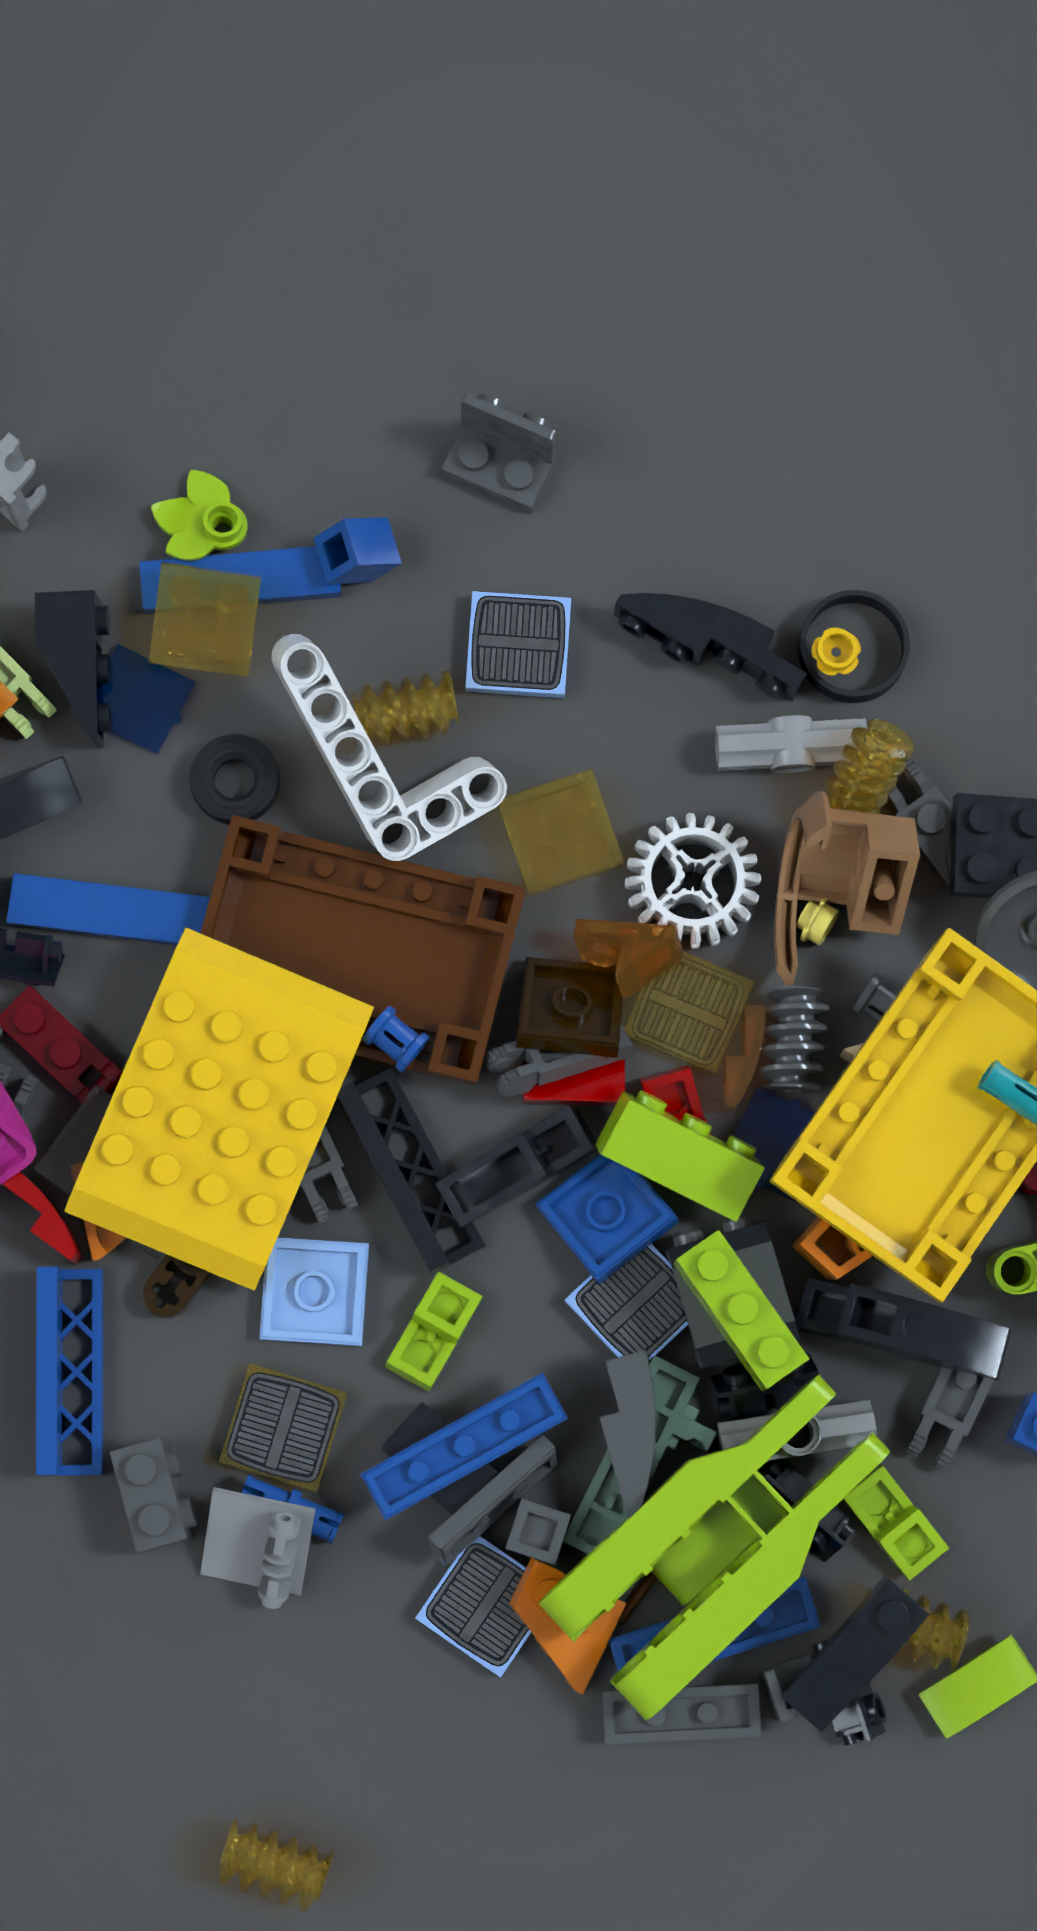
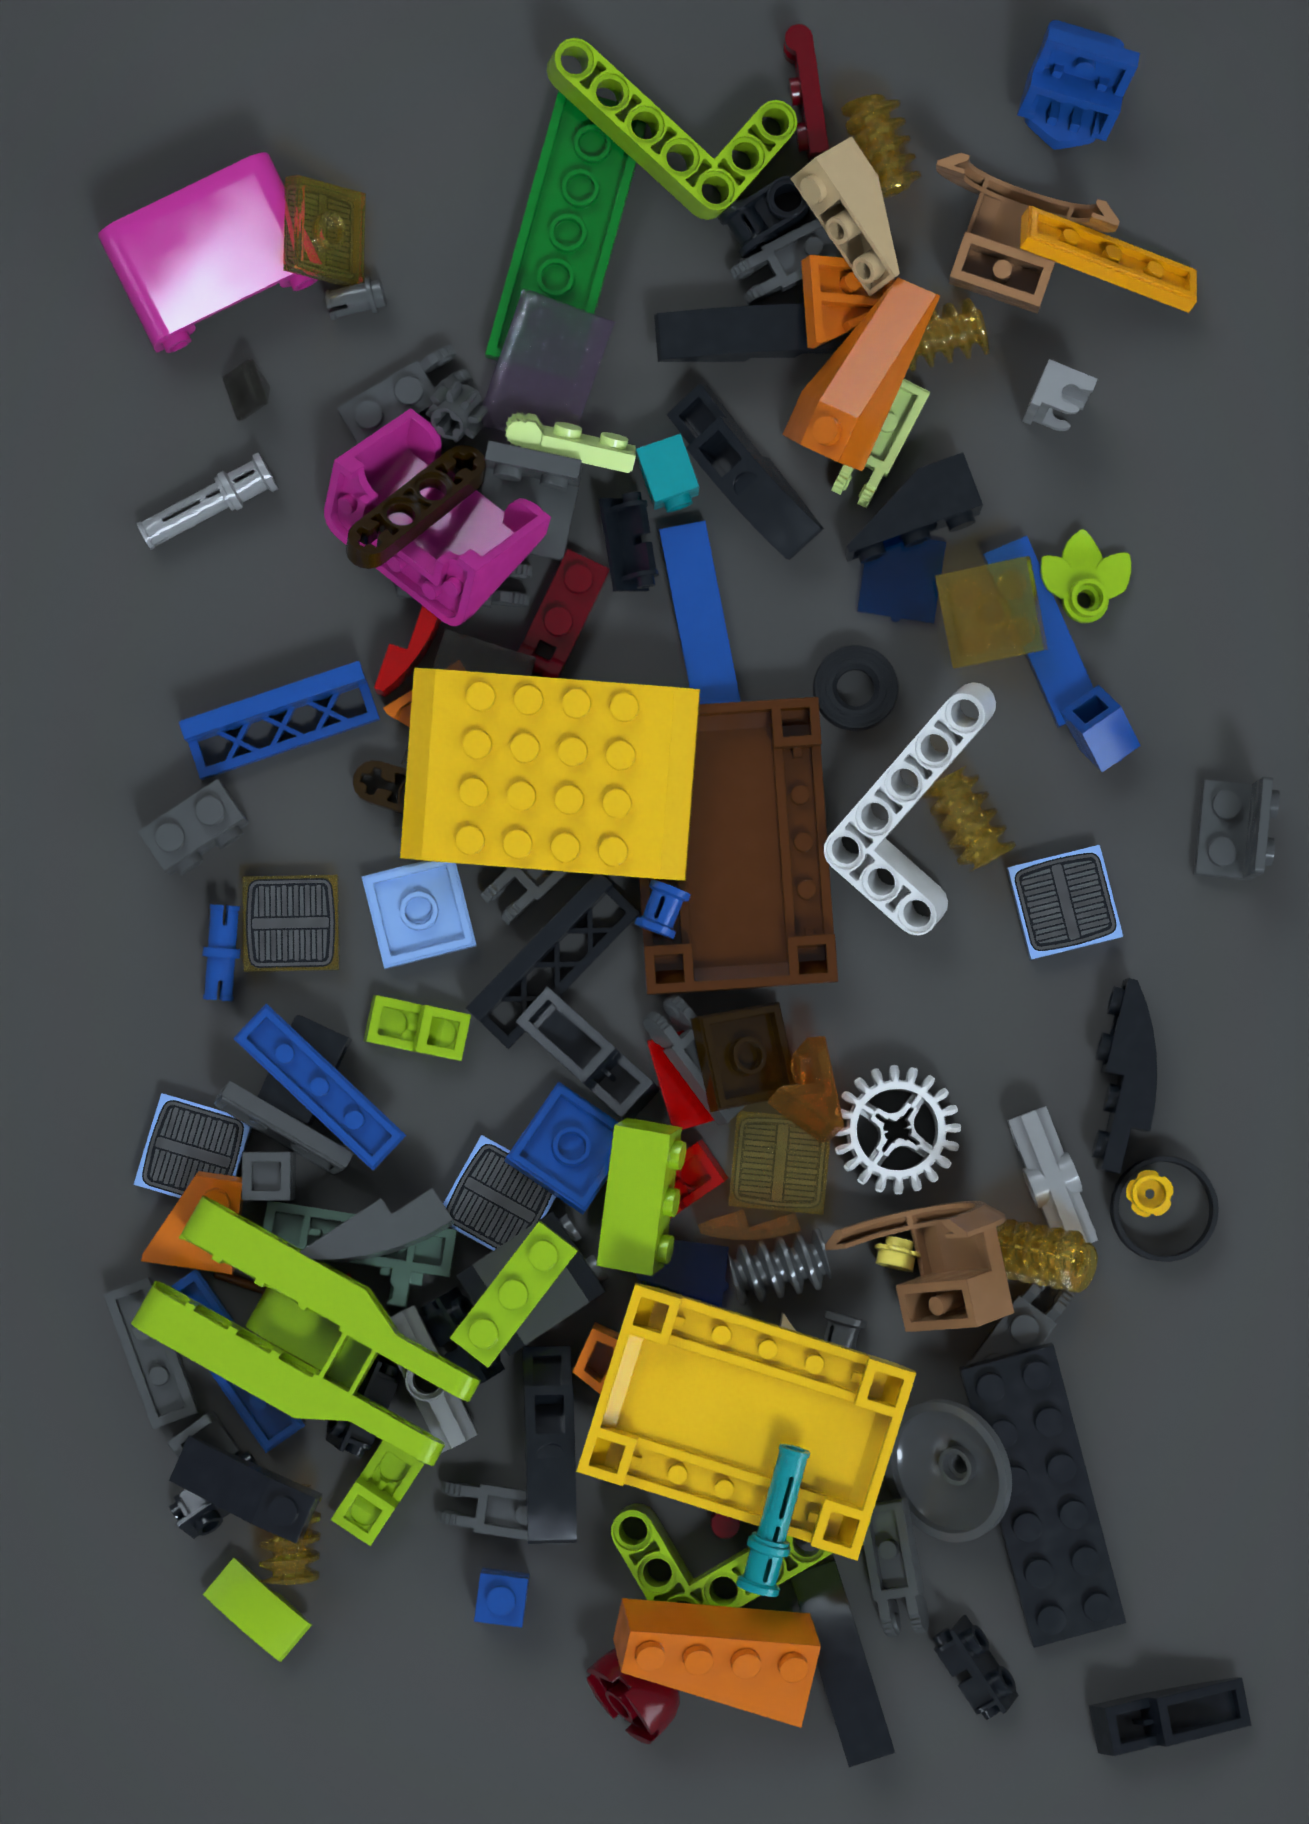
camera: 75 degrees right, 5 degrees up
(258, 1544) = (180, 935): light grey hinge -> none
(560, 832) = (902, 996): clear yellow plate -> none

